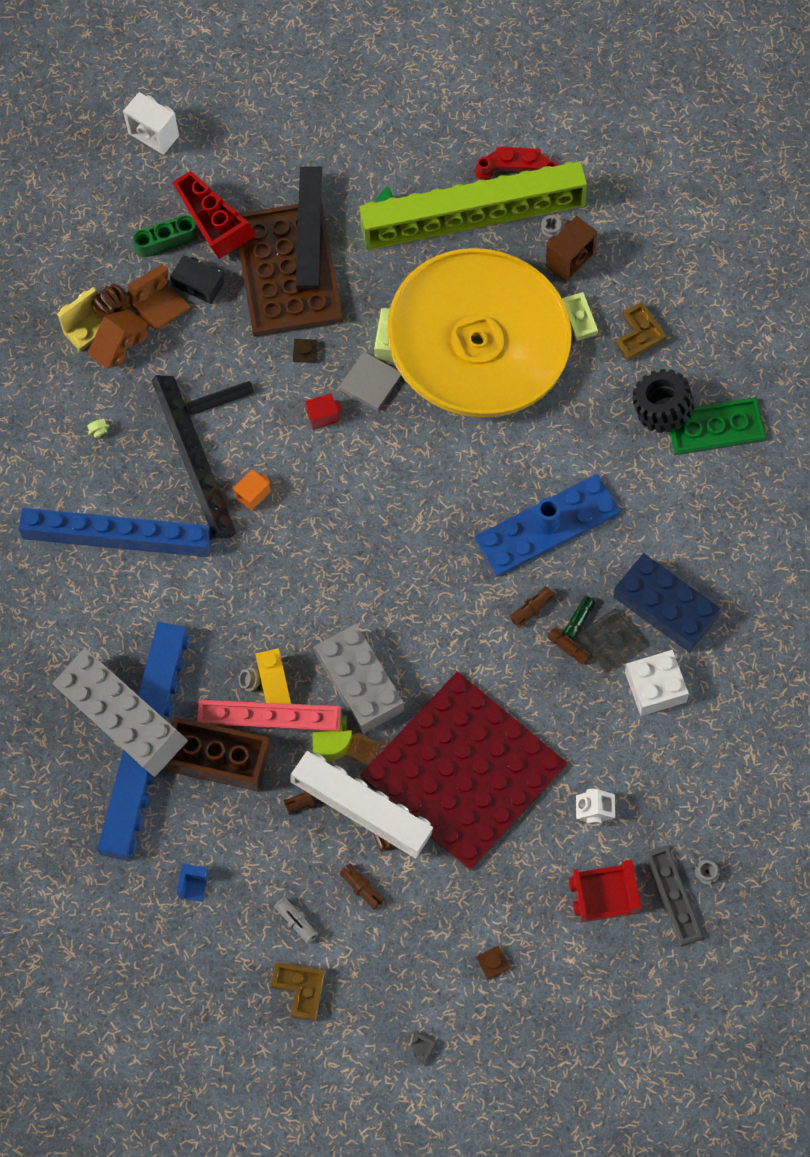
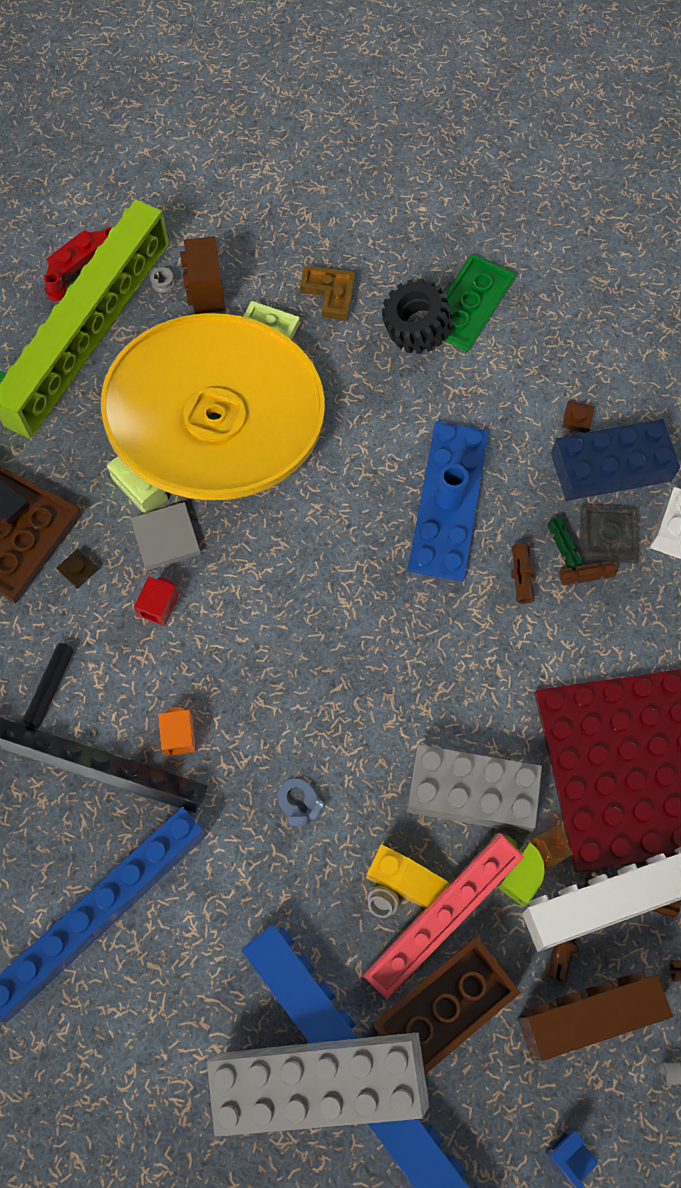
camera: 55 degrees left, 0 degrees up
(260, 593) = (293, 813): none -> sand blue piece
(277, 834) = (595, 1017): none -> reddish brown brick
(685, 559) = (578, 416): none -> reddish brown plate

